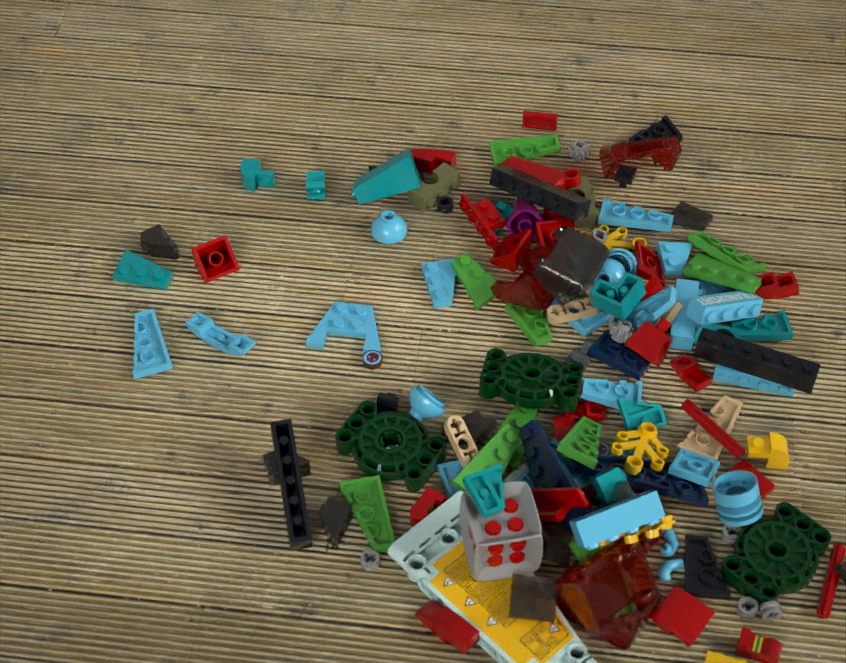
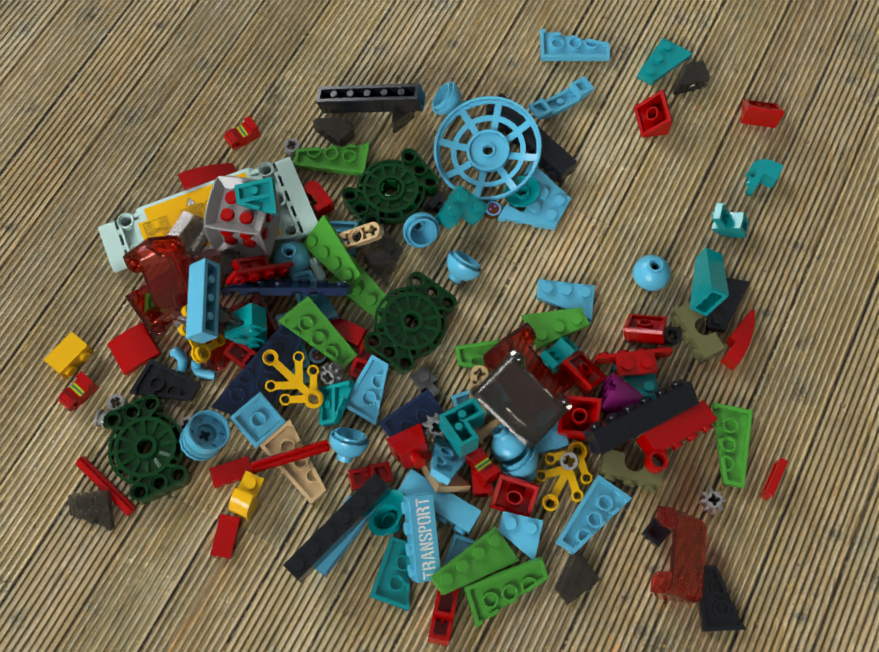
camera: 110 degrees right, 20 degrees up
(181, 188) = (761, 113): none -> red slope
(251, 432) = (446, 99): none -> medium azure piece
(276, 349) = (553, 157): none -> black brick
(311, 364) = (484, 139): none -> medium azure dish
(344, 329) = (531, 192): none -> teal dish
(374, 613) = (242, 134): none -> red leg
(390, 376) = (461, 204): none -> teal brick
(448, 217) = (645, 329): none -> red slope
(452, 357) = (462, 267): none -> medium azure piece
(503, 268) = (561, 350): none -> teal brick
(612, 426) = (331, 373): none -> light grey gear
(673, 389) = (348, 443): none -> medium azure piece
(811, 461) = (225, 536): none -> red tile

